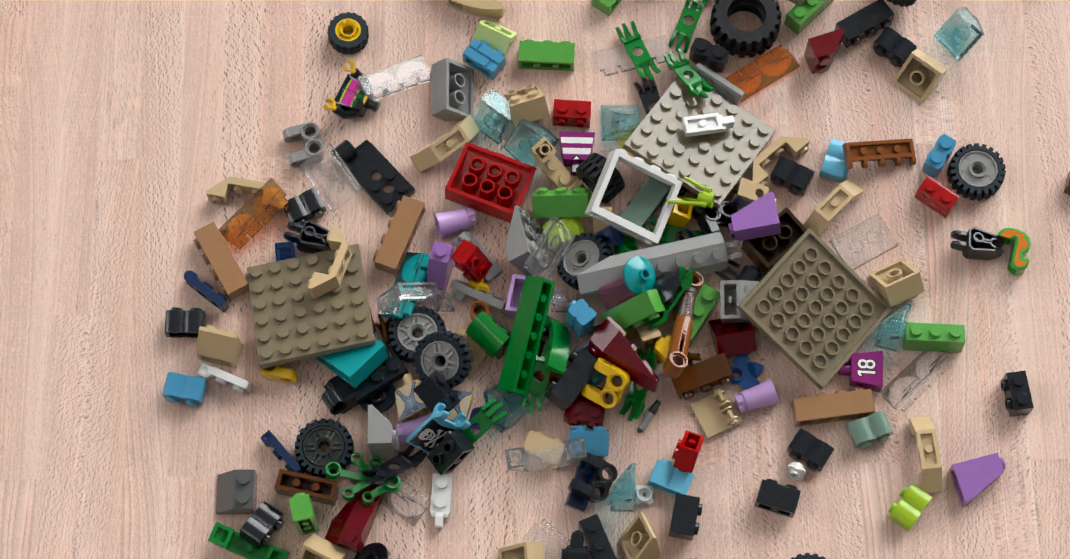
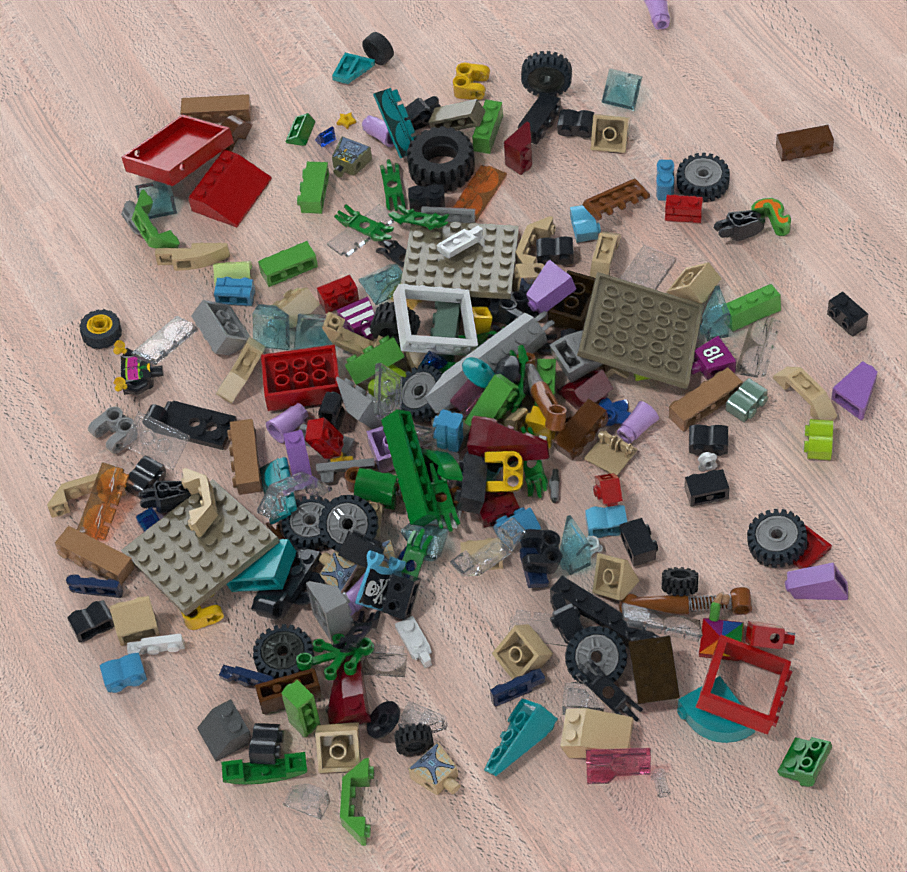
camera: 25 degrees left, 15 degrees down
(495, 235) = (332, 409): none -> black brick
(704, 199) = (496, 293): lime plant -> none

